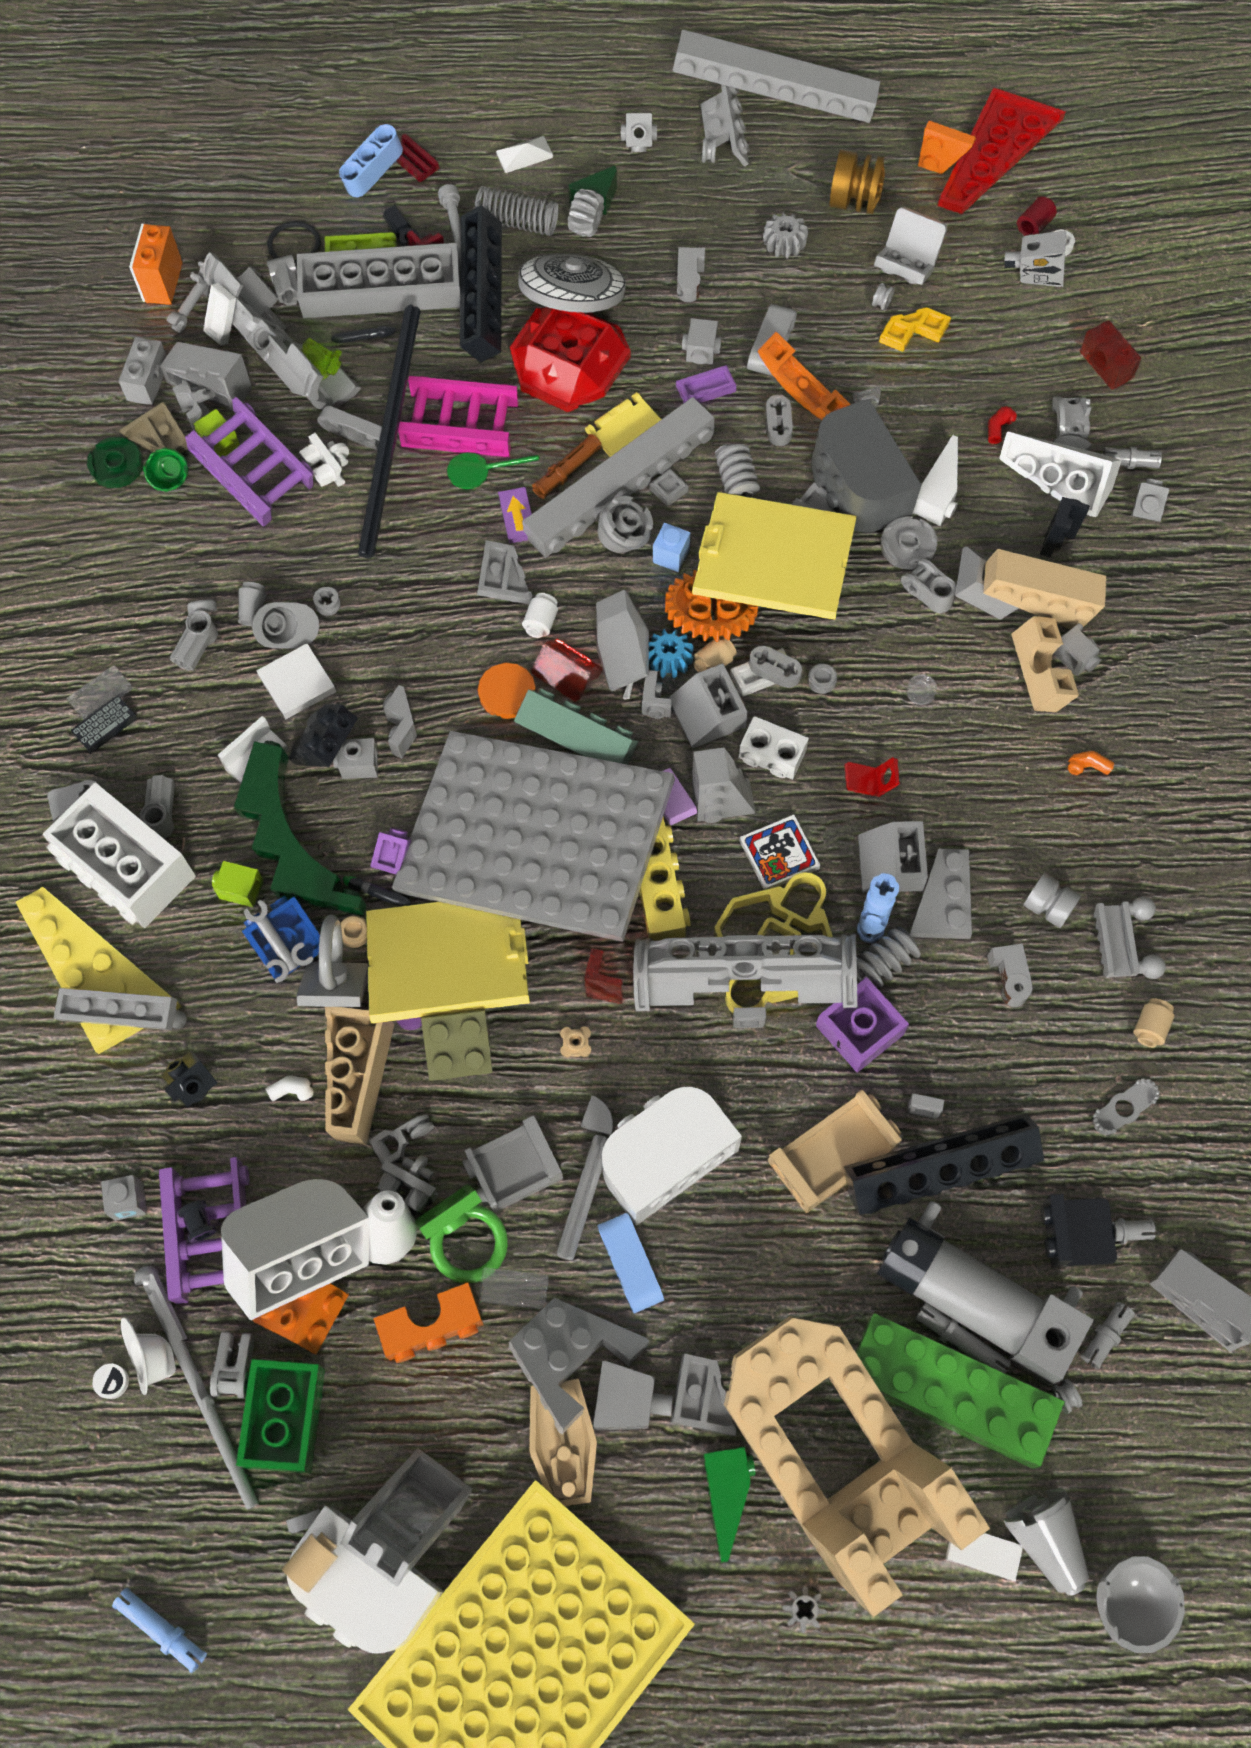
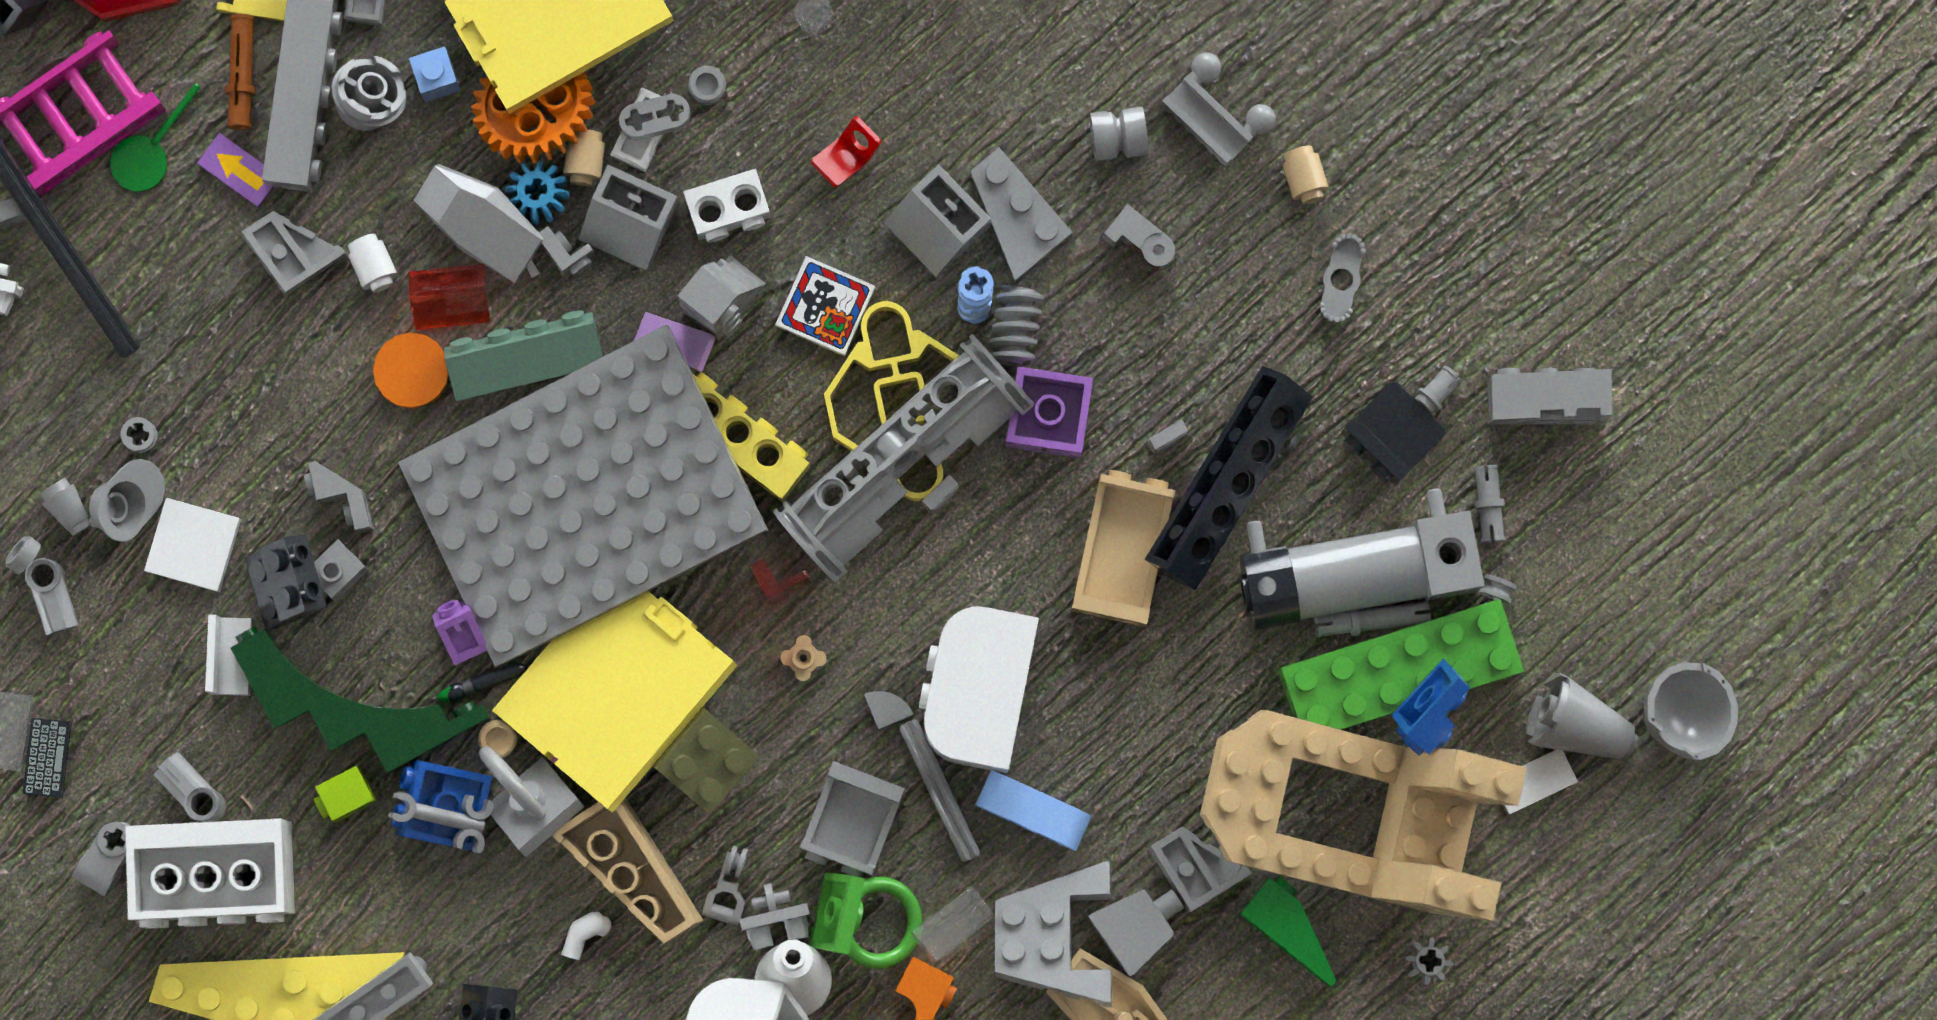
camera: 50 degrees left, 15 degrees up
(942, 1430) = (1423, 713): none -> blue plate

